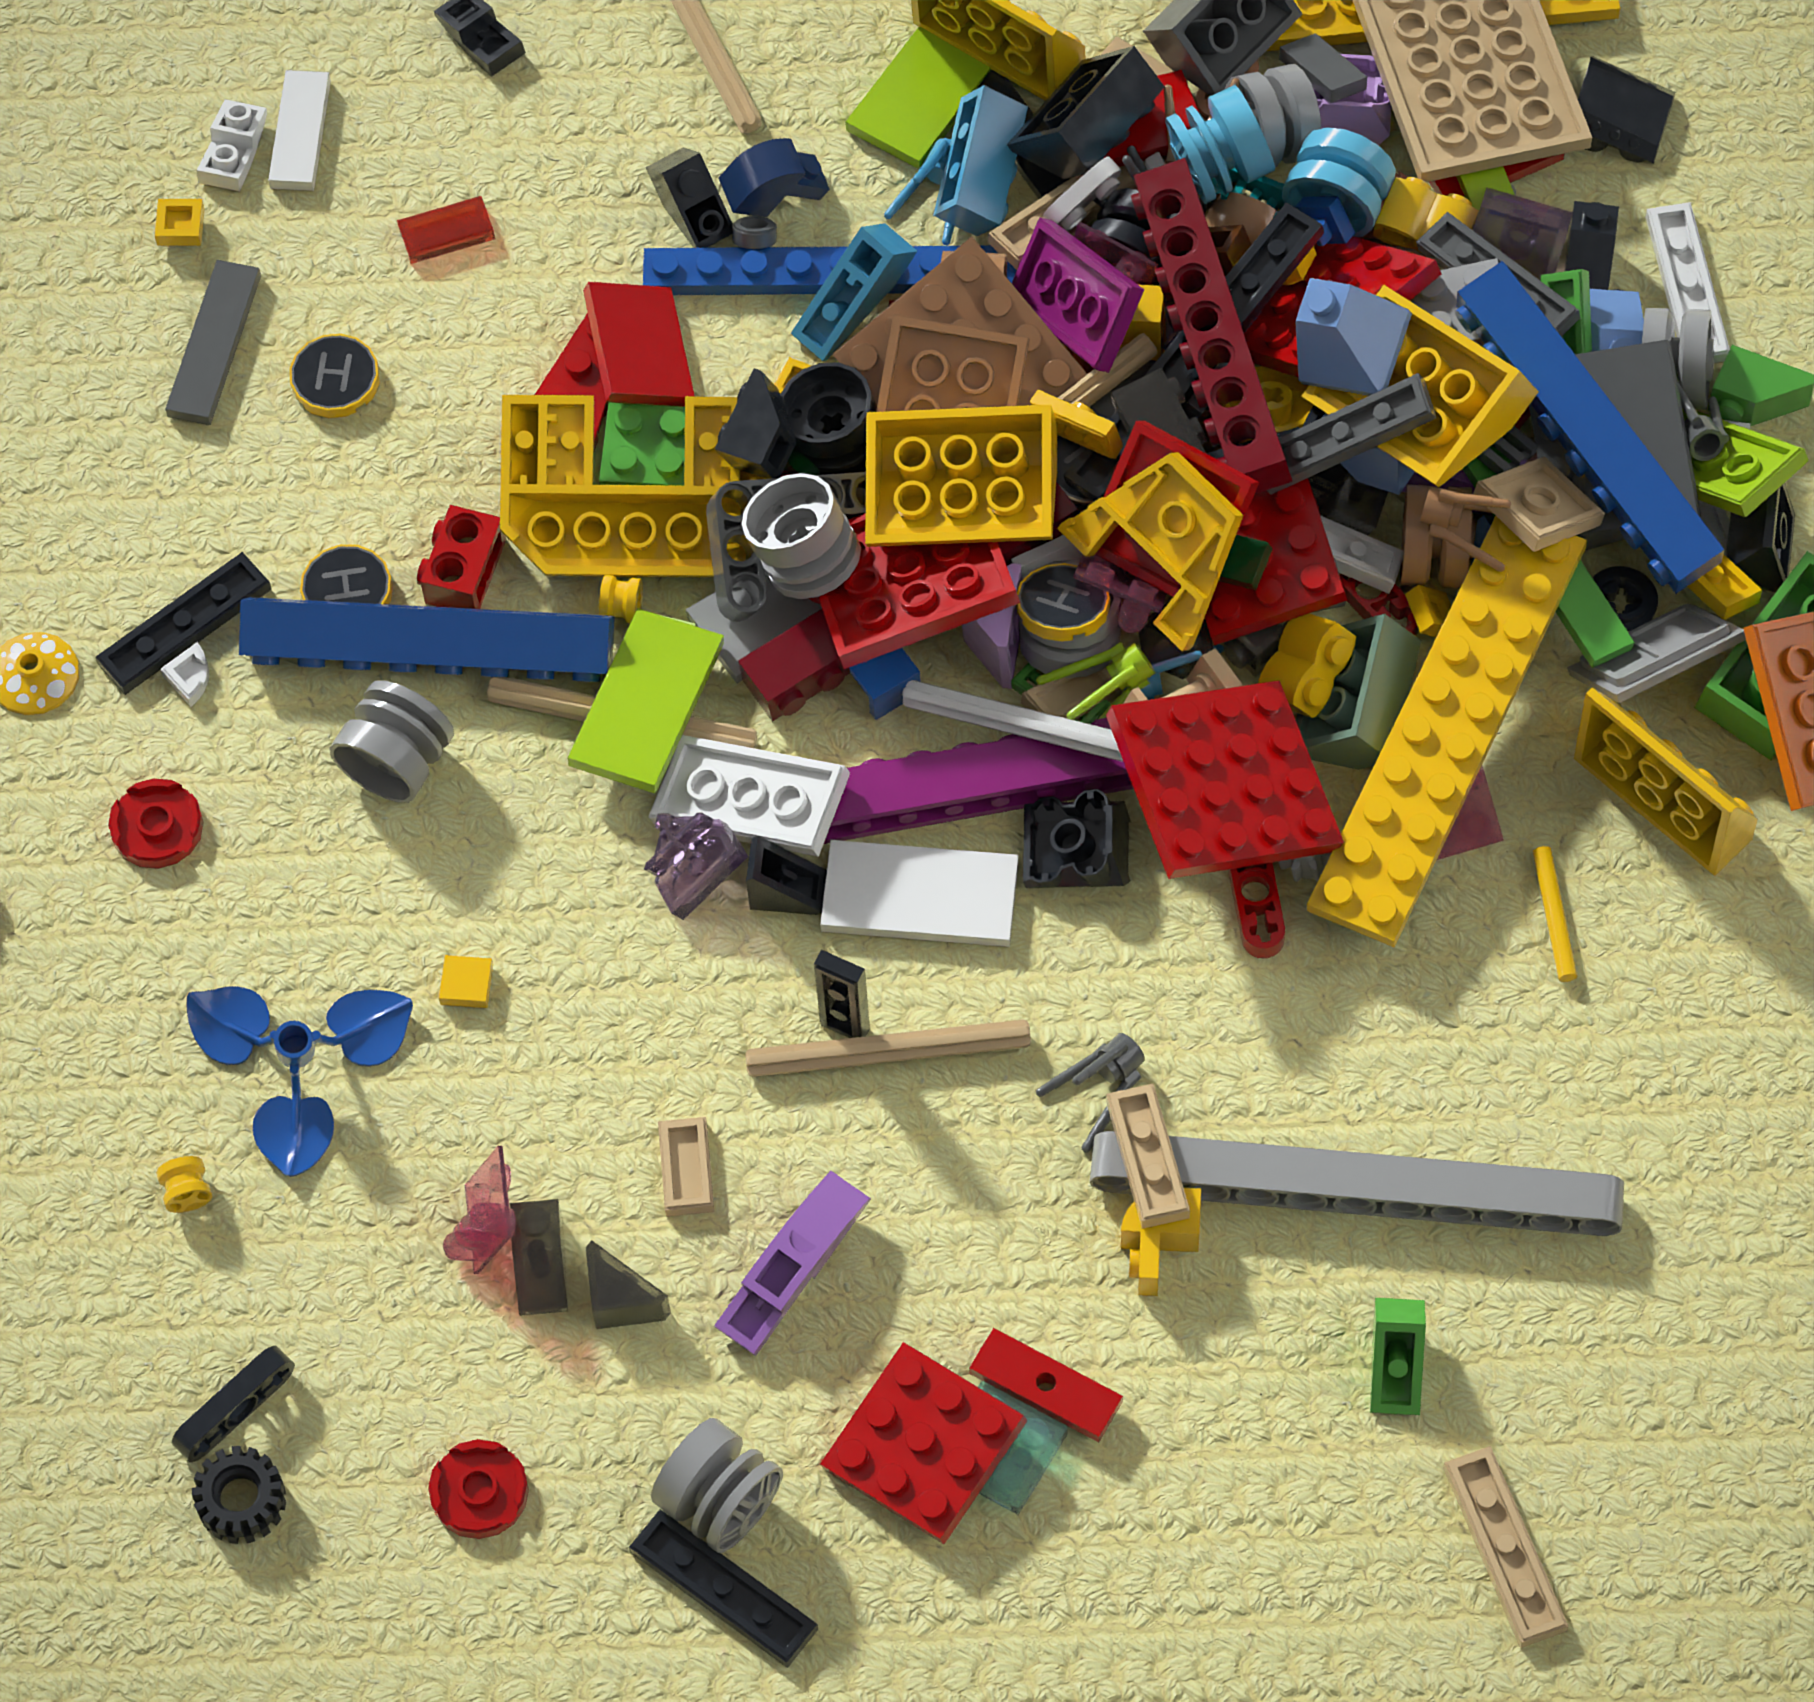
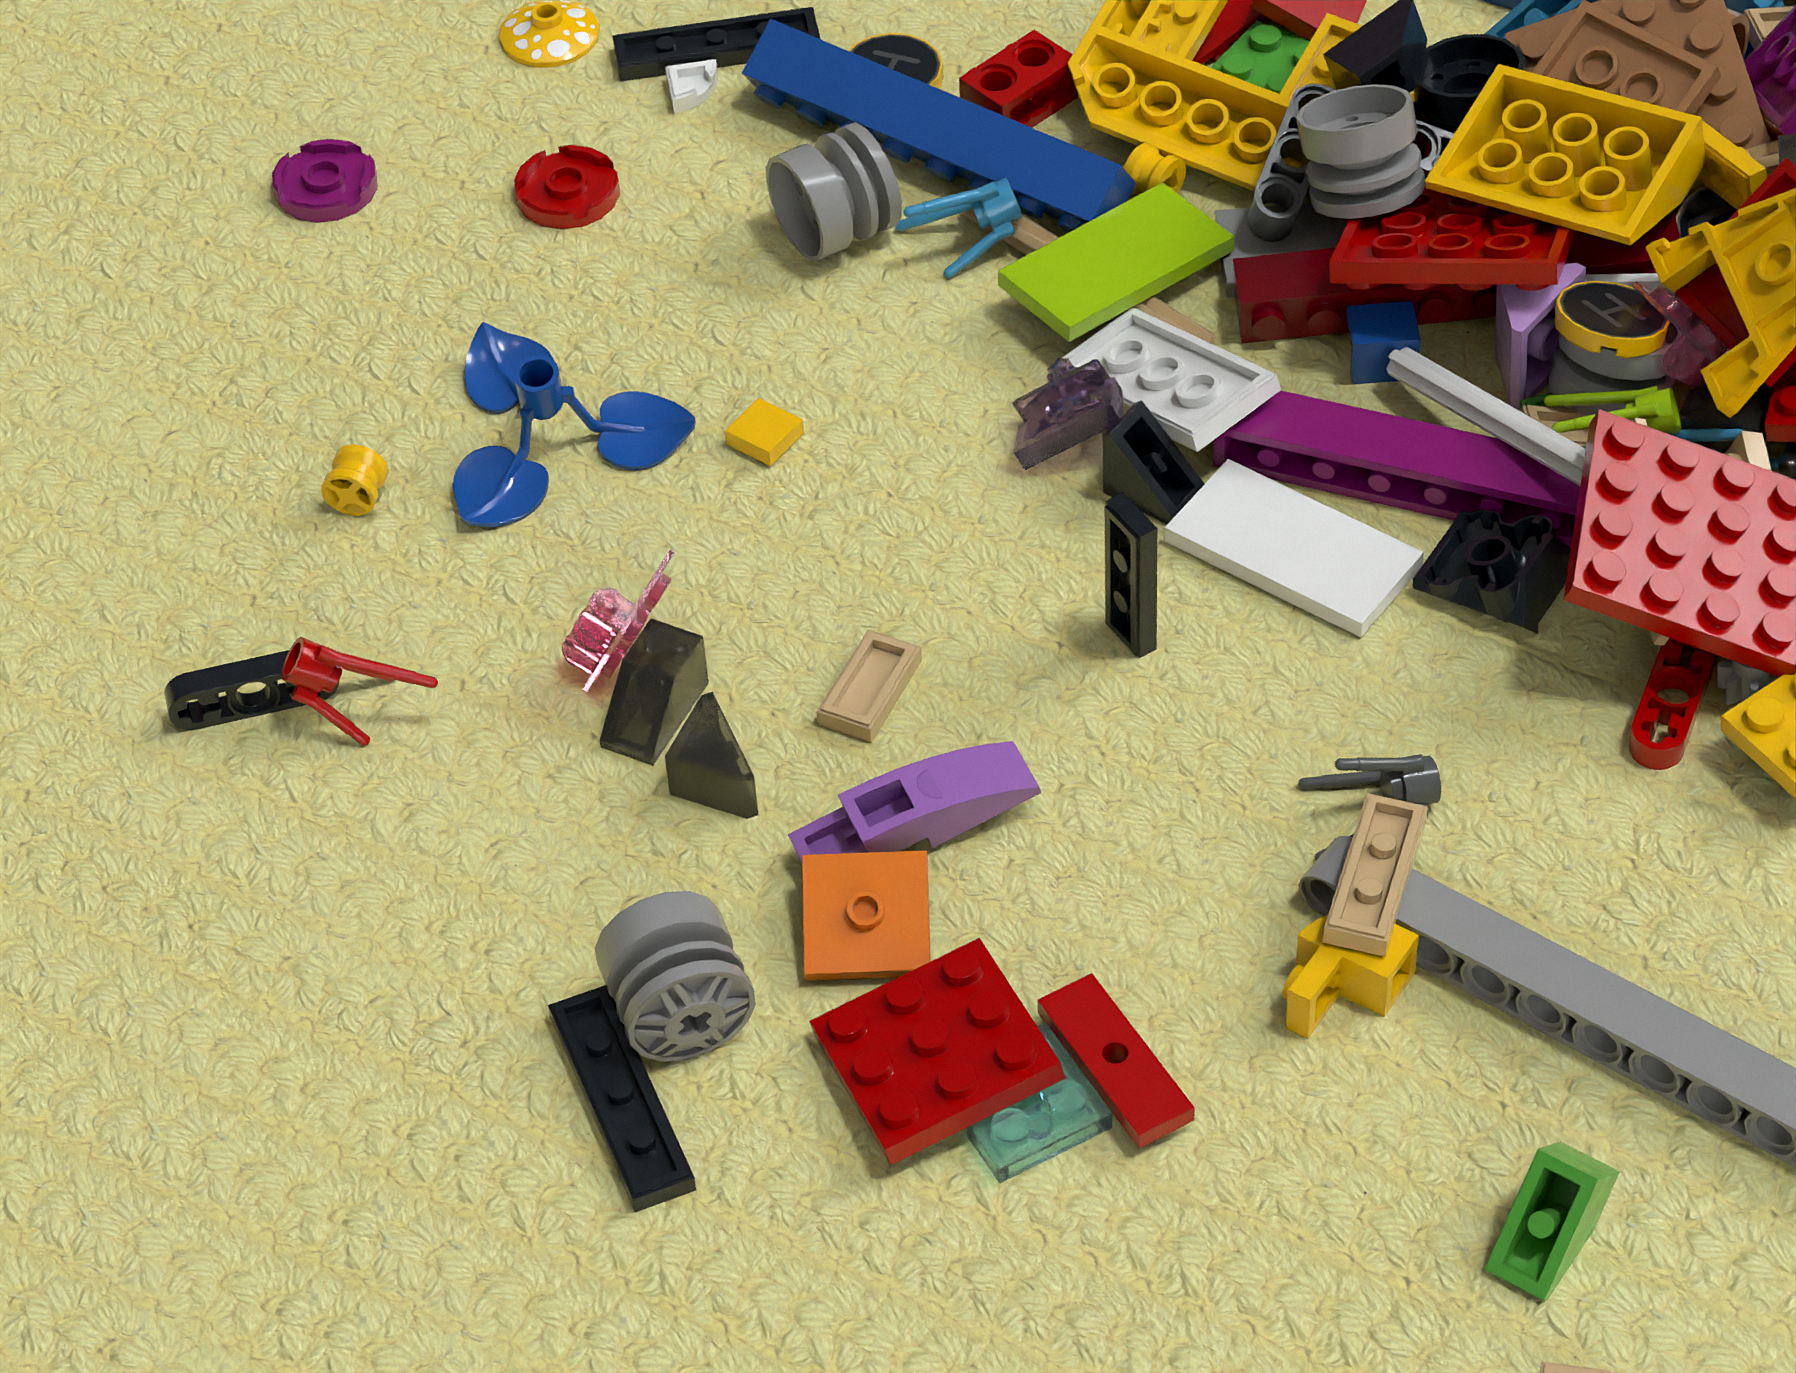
camera: 30 degrees right, 15 degrees down
(249, 1521) = (200, 795): black tyre -> none
(289, 1371) = (319, 668): none -> red plant
(478, 1489) = (437, 882): red tile -> none
(521, 694) = (992, 205): none -> dark azure plant
(809, 1361) = (865, 914): none -> orange plate
(888, 1048) = (1163, 669): tan axle -> none

